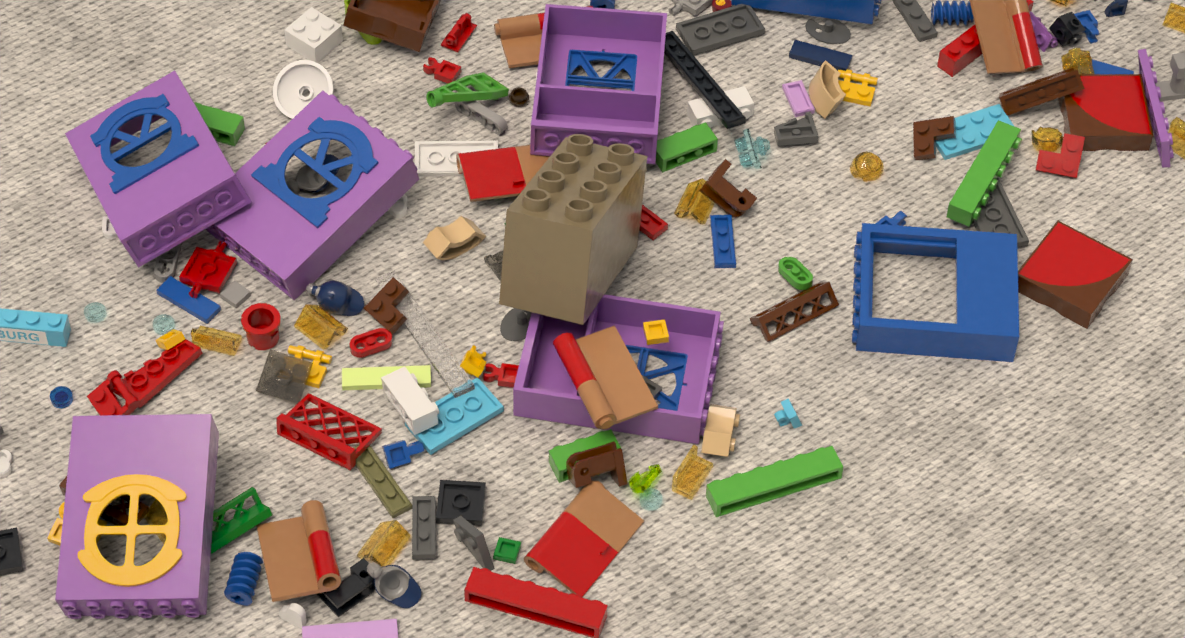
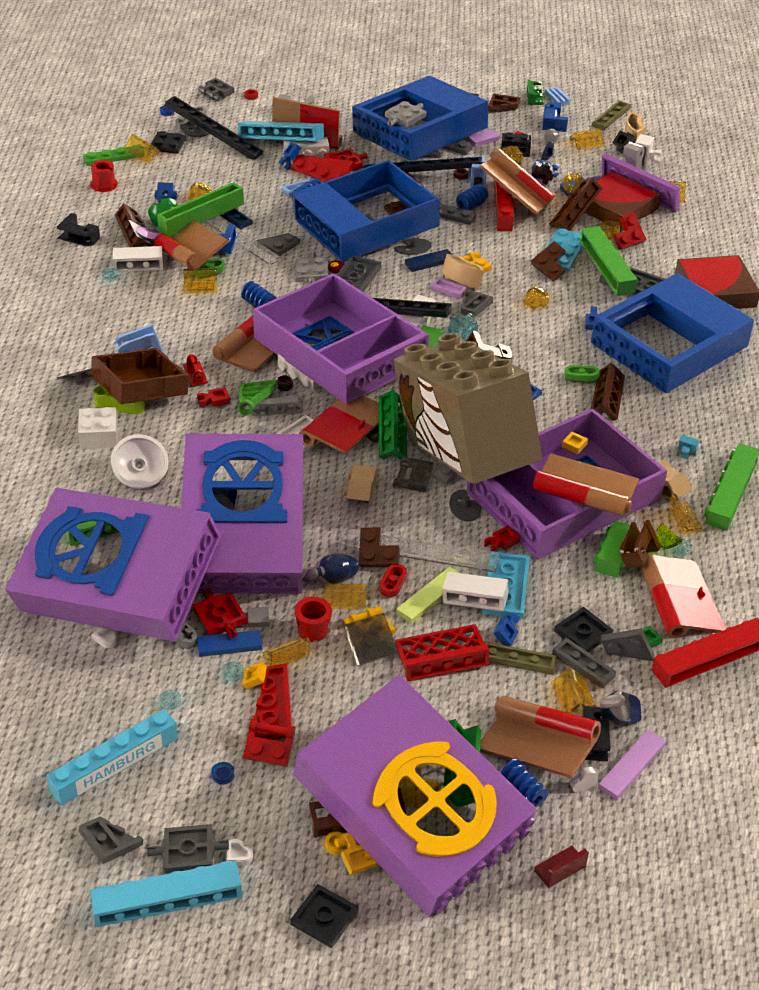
camera: 45 degrees left, 10 degrees down
(473, 362) = (477, 544): yellow plate -> none

